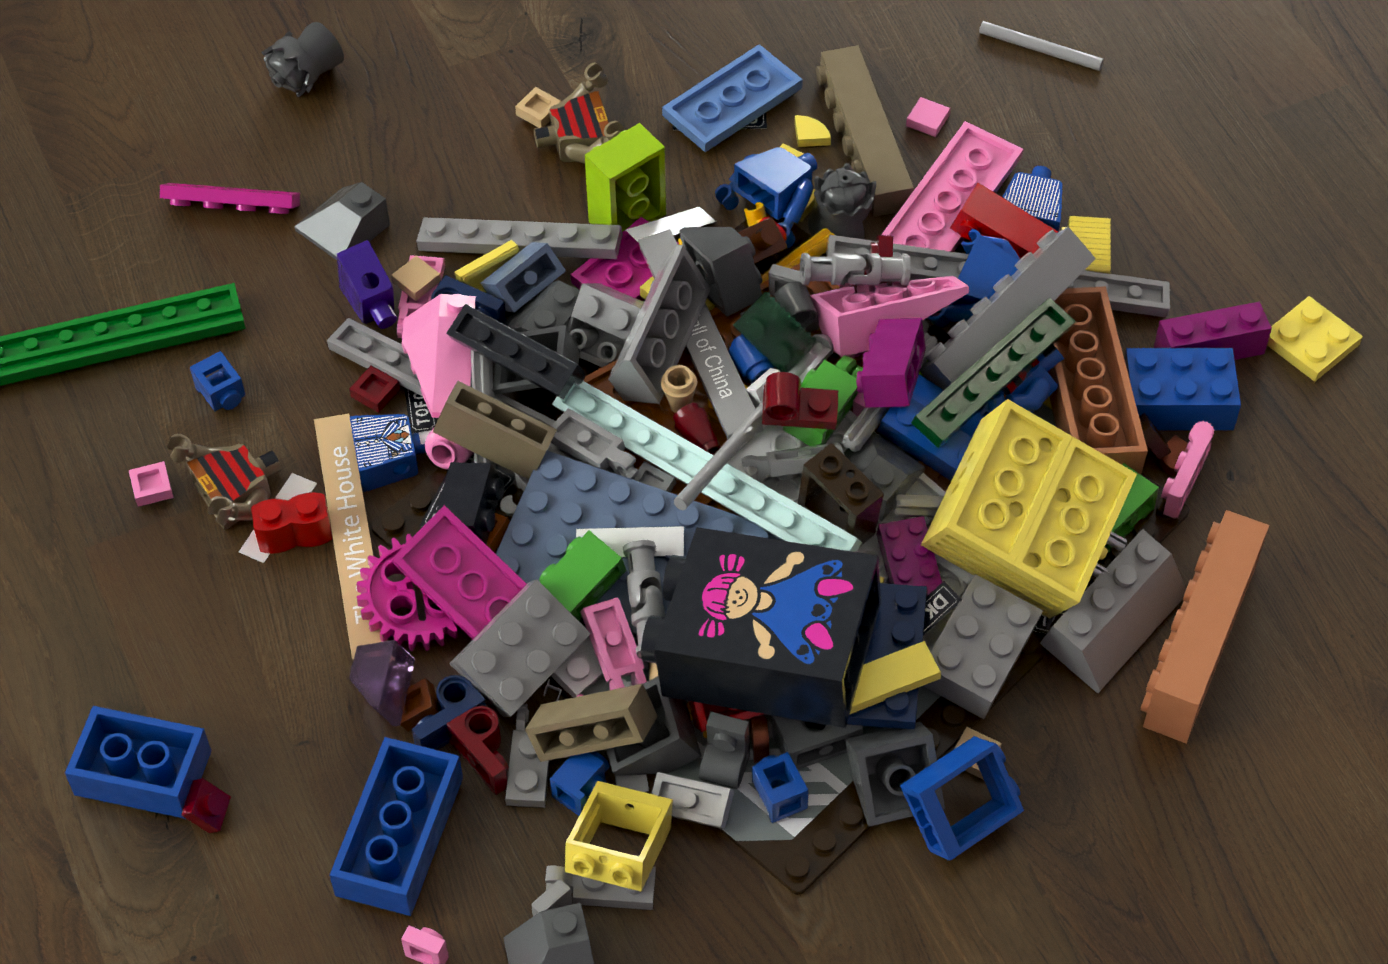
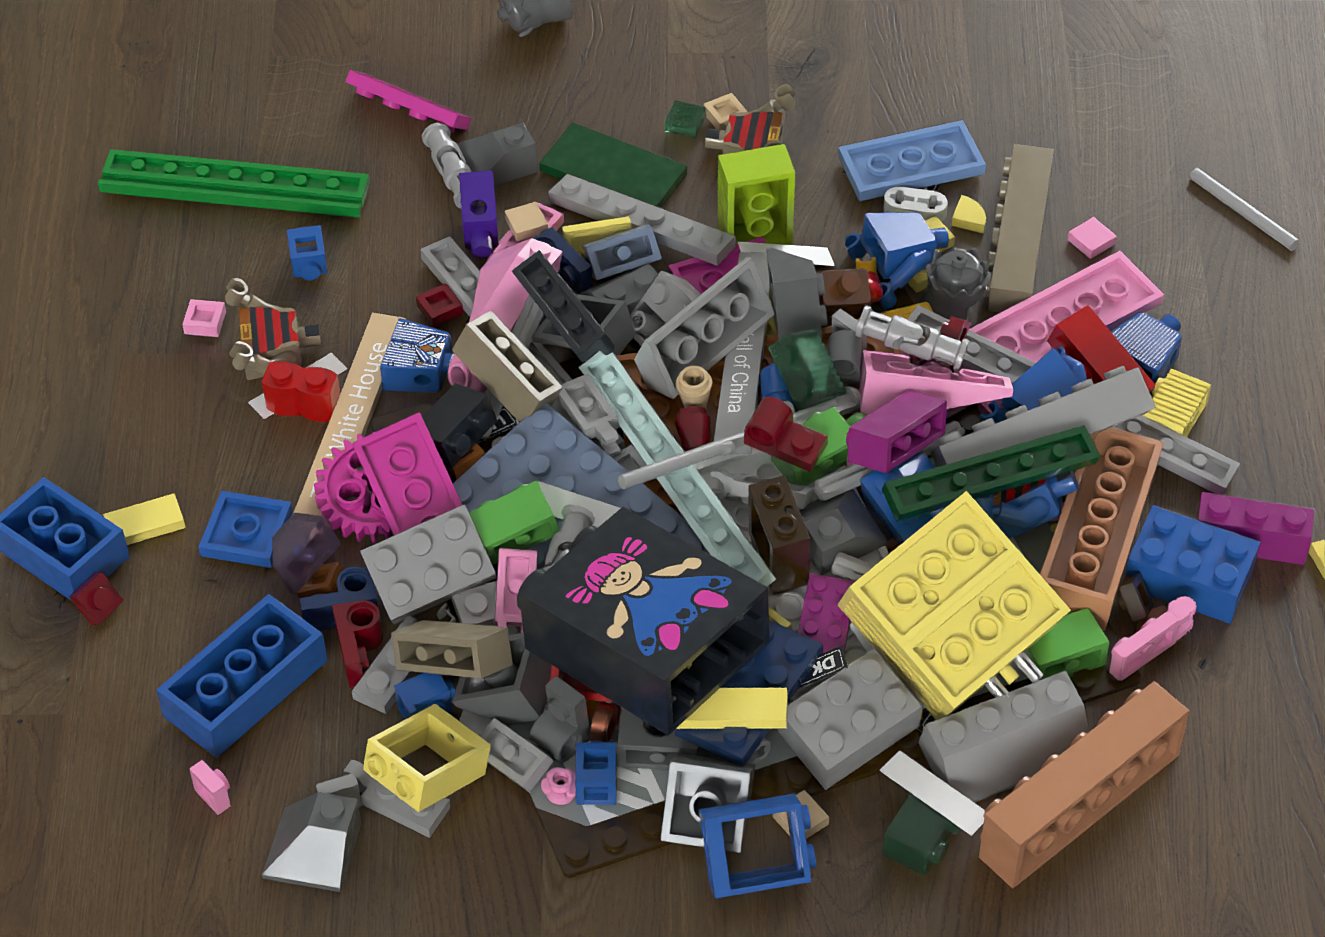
camera: 25 degrees right, 5 degrees down
(209, 704) = (148, 519): none -> light yellow tile
(303, 243) = (446, 157): none -> light grey piece
(312, 679) = (244, 528): none -> blue plate
(460, 194) = (613, 165): none -> dark green tile
(504, 126) = (685, 119): none -> clear green plate
(750, 820) = (557, 793): none -> bright pink plate
(756, 137) = (916, 201): none -> white beam
(1088, 684) = (934, 792): none -> white sticker
(1088, 718) = (918, 836): none -> clear green brick

